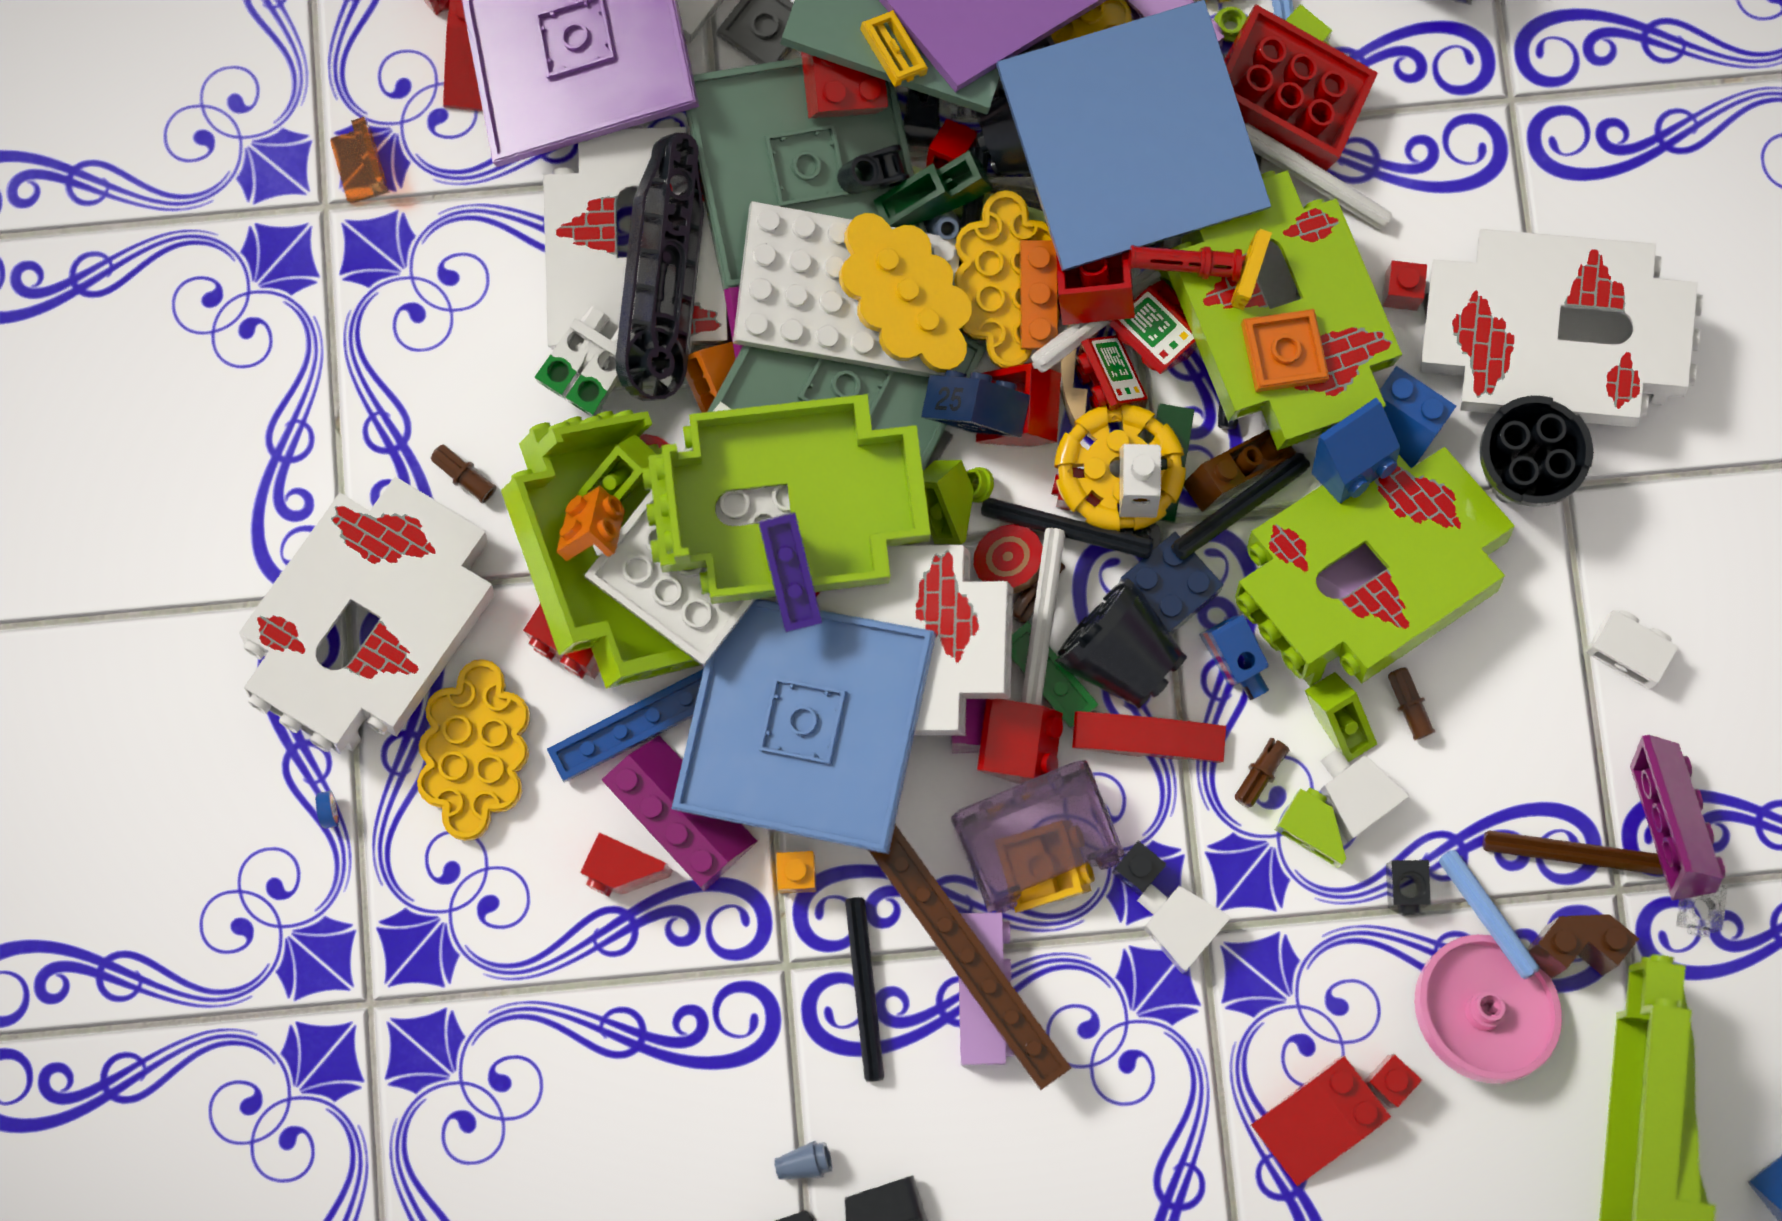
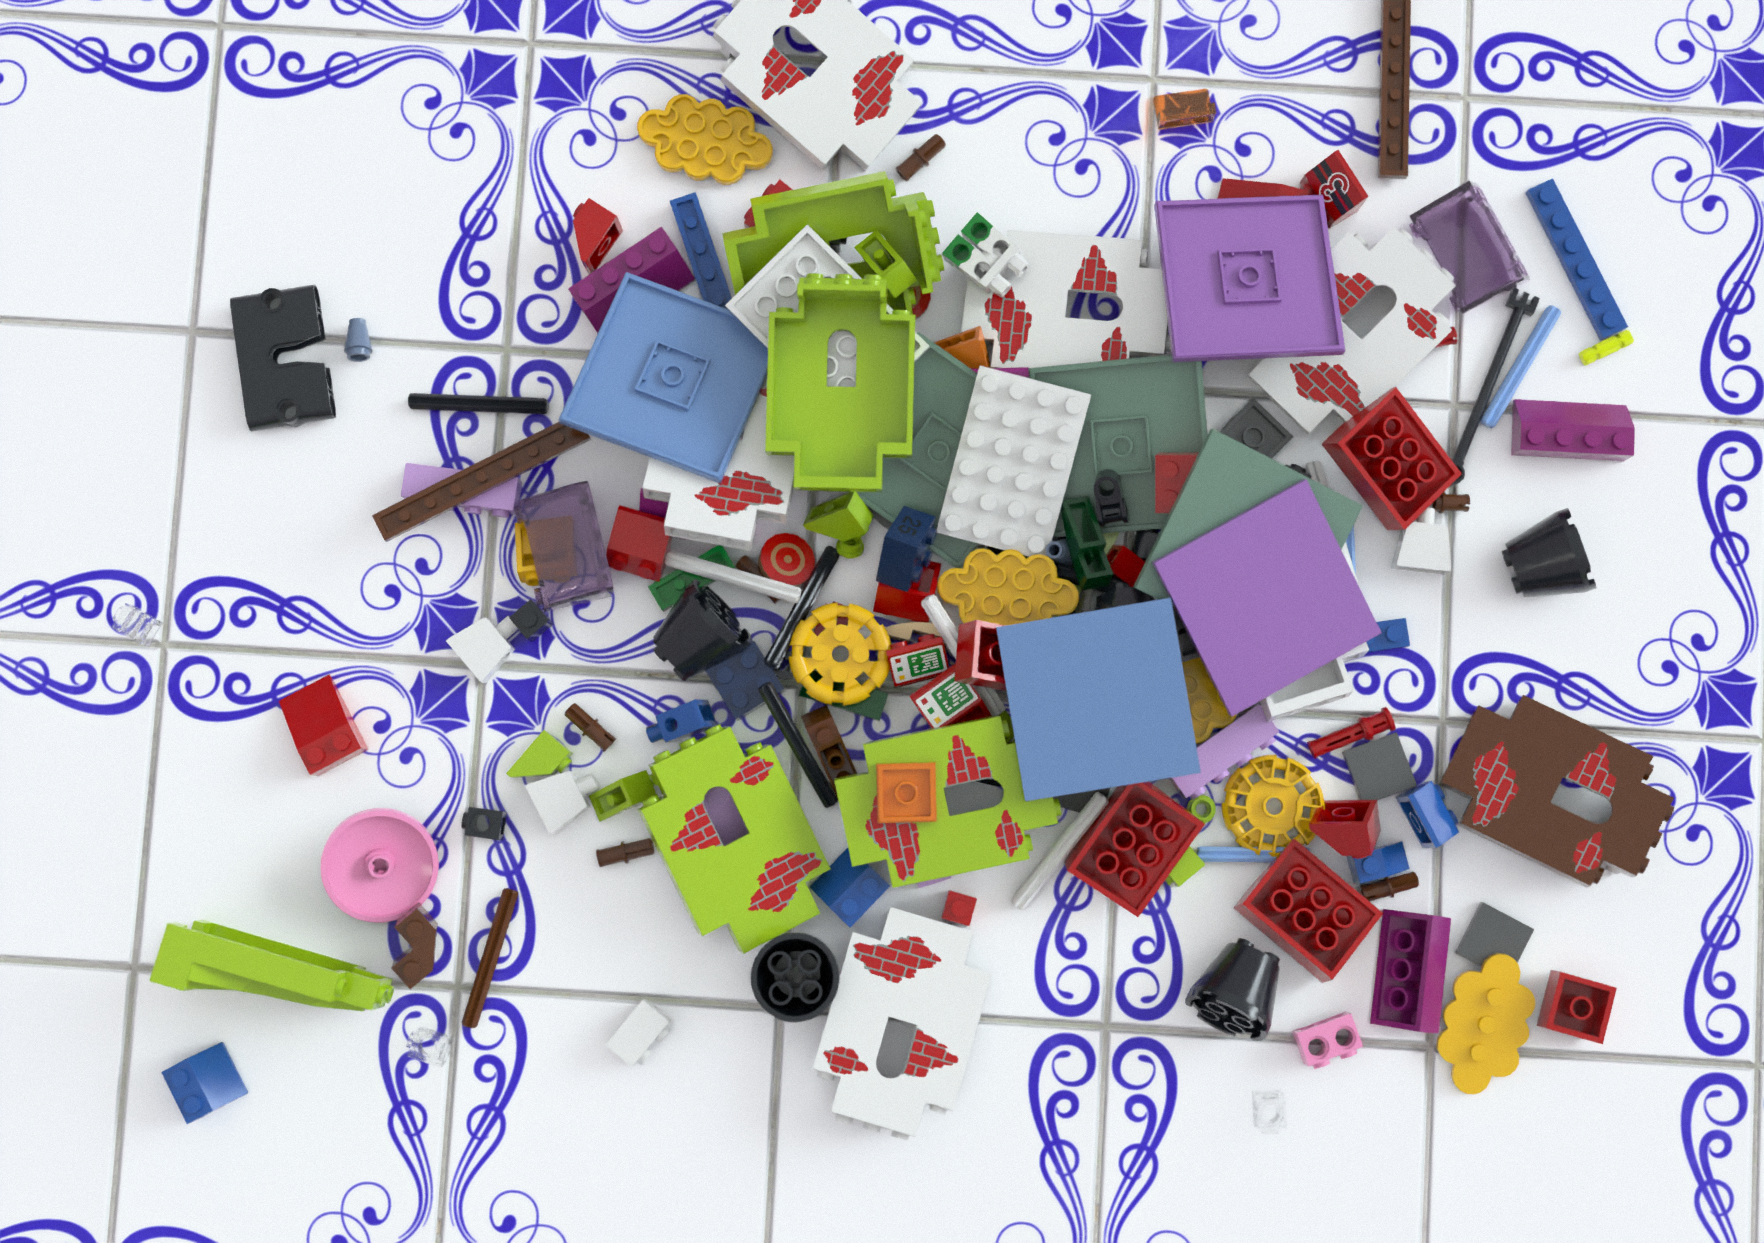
camera: 95 degrees right, 5 degrees up
(327, 809) = (676, 26): blue tile -> none
(591, 521) = (844, 234): orange bracket -> none
(665, 270) = (1036, 317): black beam -> none
(790, 572) = (778, 373): dark purple piece -> none
(796, 872) = (569, 362): light orange brick -> none
(895, 75) = (1170, 525): yellow tile -> none
(905, 292) = (1003, 506): yellow plate -> none
(1037, 293) = (1003, 612): orange plate -> none
(1140, 479) = (823, 662): white torso -> none
(1149, 736) = (630, 645): red slope -> none
(1203, 262) = (985, 738): red pin -> none
(1251, 269) = (974, 775): yellow tile -> none
(1356, 452) = (817, 837): blue slope -> none
(1392, 1081) = (339, 783): red brick -> none
(1489, 914) = (451, 880): light blue axle -> none
(1676, 818) = (496, 1037): magenta slope -> none

